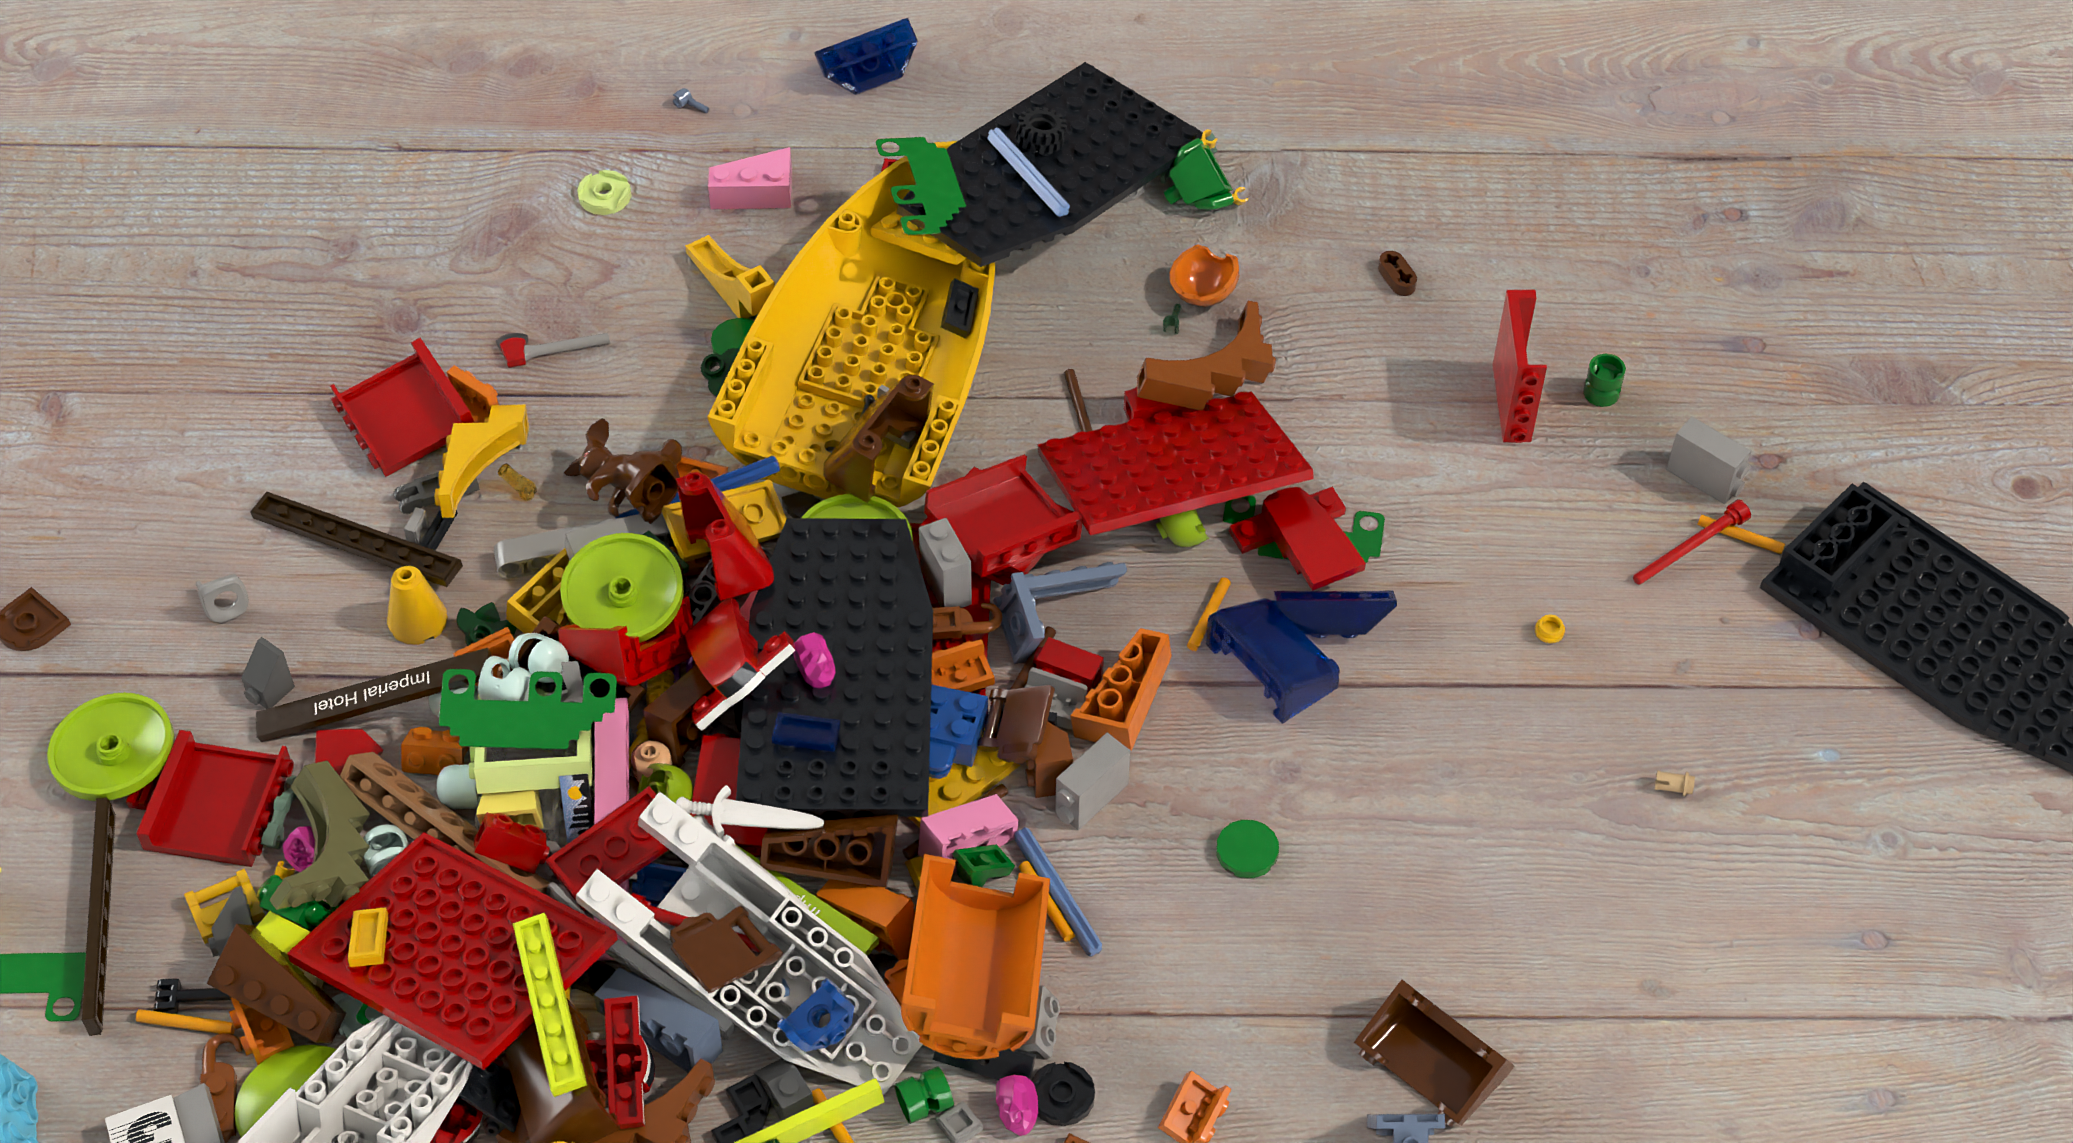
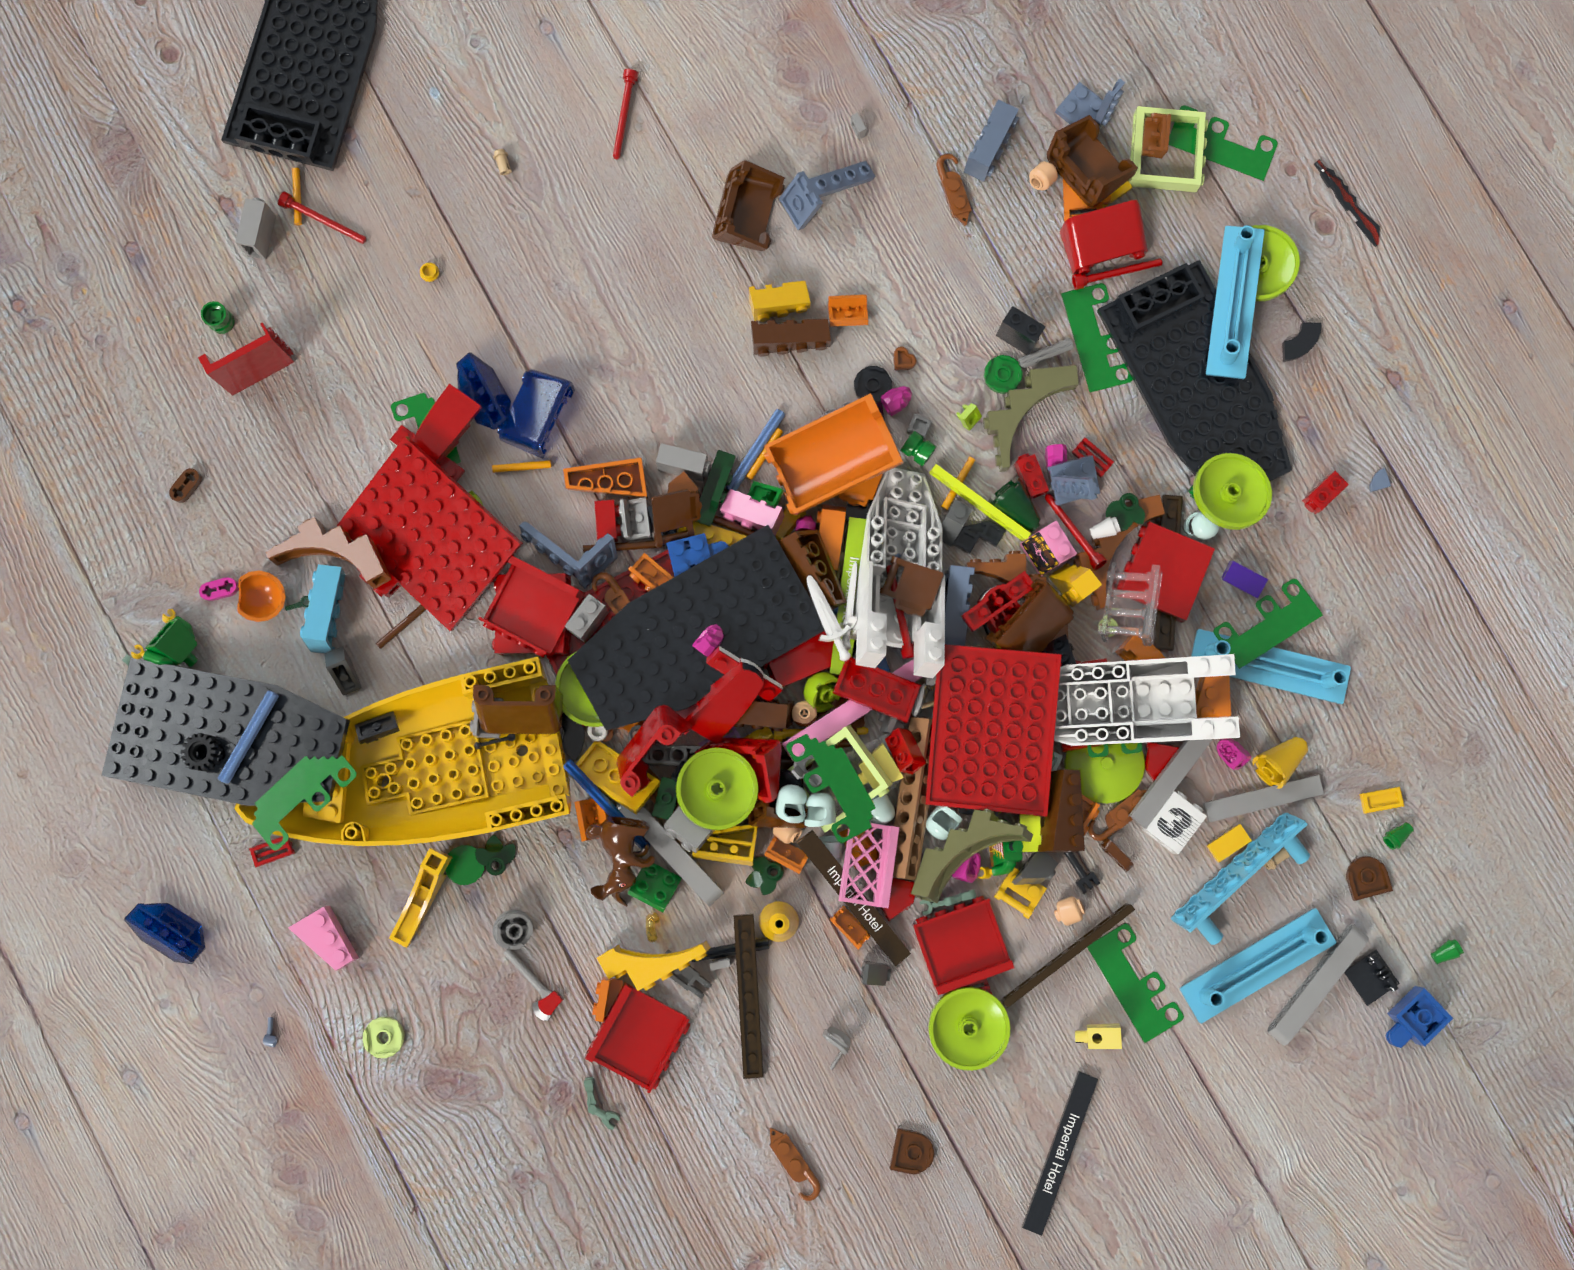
camera: 125 degrees left, 30 degrees up
(131, 498) = (793, 1162): none -> dark orange plate
(150, 947) = (1069, 911): none -> light nougat head
(171, 1048) = (1117, 855): none -> reddish brown beam
(184, 1022) = (1096, 862): light orange bar -> none
(340, 347) = (594, 1109): none -> sand green piece
(341, 675) = (850, 927): none -> orange hinge
(368, 937) = (1015, 776): yellow tile -> none
(380, 742) = (884, 871): none -> bright pink fence
(549, 1005) = (1008, 642): neon yellow tile -> none
(562, 501) = (655, 886): none -> green plate
(576, 804) = (864, 727): sticker -> none
(625, 342) = (512, 929): none -> light grey cone
(803, 1023) = (926, 517): blue piece -> none
(806, 731) = (758, 618): clear blue tile -> none
(905, 882) = (805, 523): none -> dark pink rock
(1035, 811) = (714, 488): none -> dark green bracket
(1061, 320) = (342, 670): none -> dark grey slope
(1144, 326) = (323, 608): none -> medium azure wedge
(1200, 1006) = (790, 336): none -> reddish brown wedge
(1247, 848) = (671, 365): green tile -> none
(1248, 254) = (220, 593): none -> dark pink beam
(1265, 1019) = (779, 300): none -> yellow wedge
(1733, 1002) = (630, 77): none -> red piece

